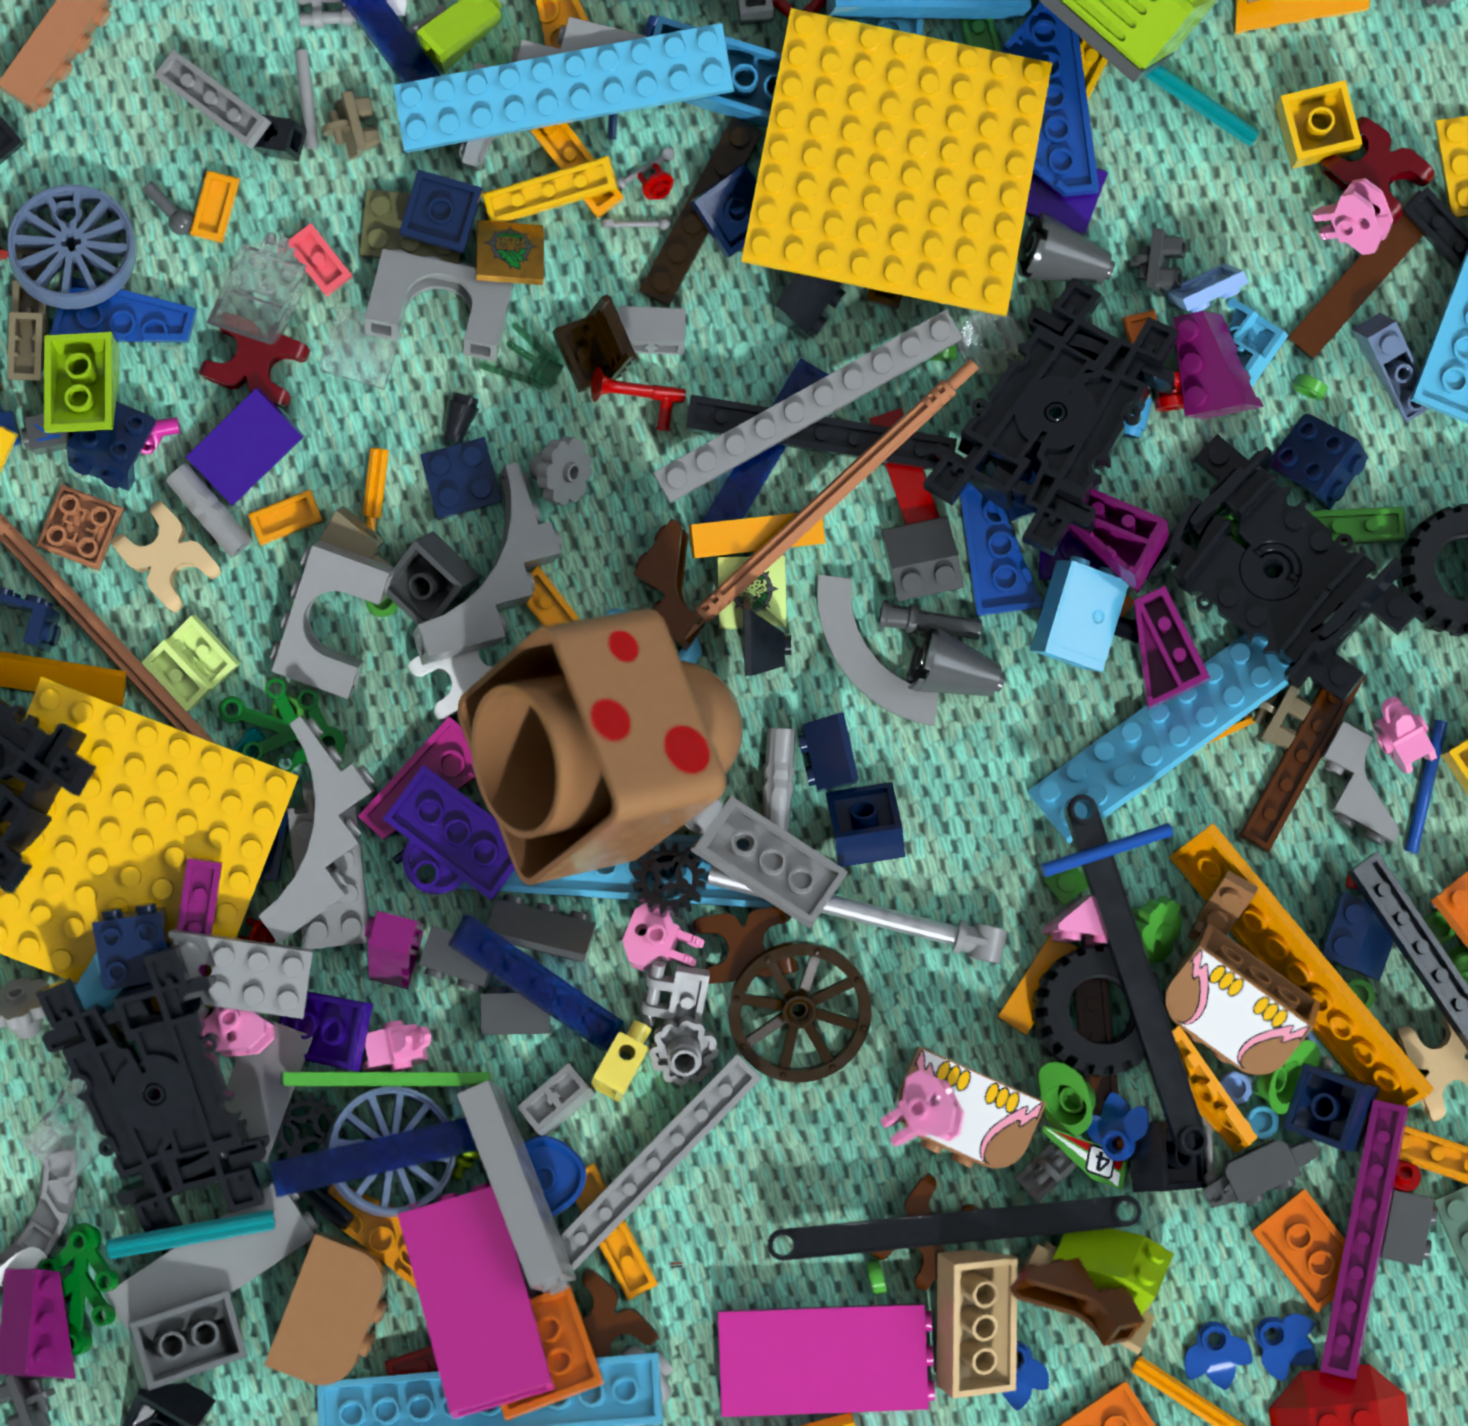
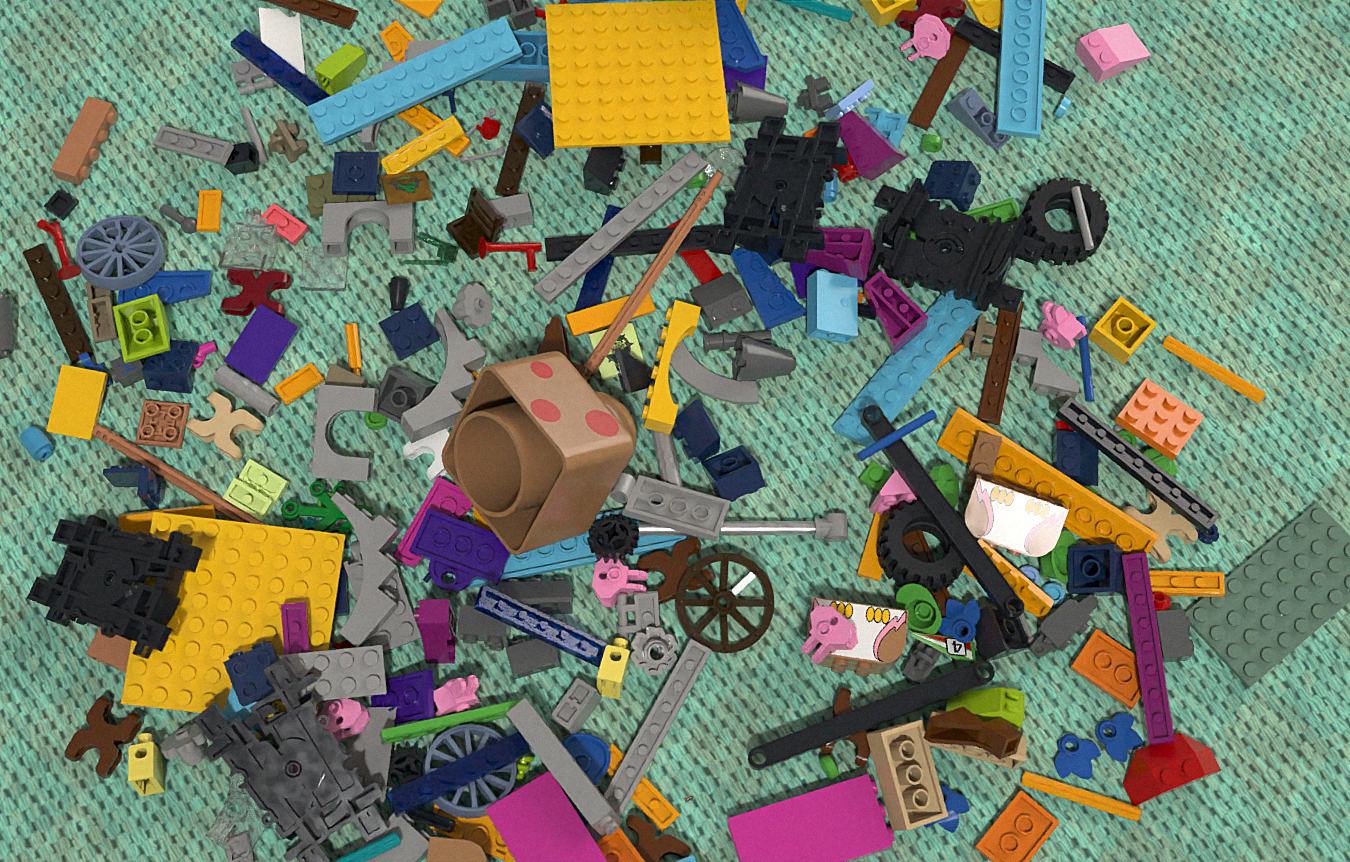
camera: 15 degrees left, 15 degrees down
(786, 710) = (661, 410): none -> yellow arch

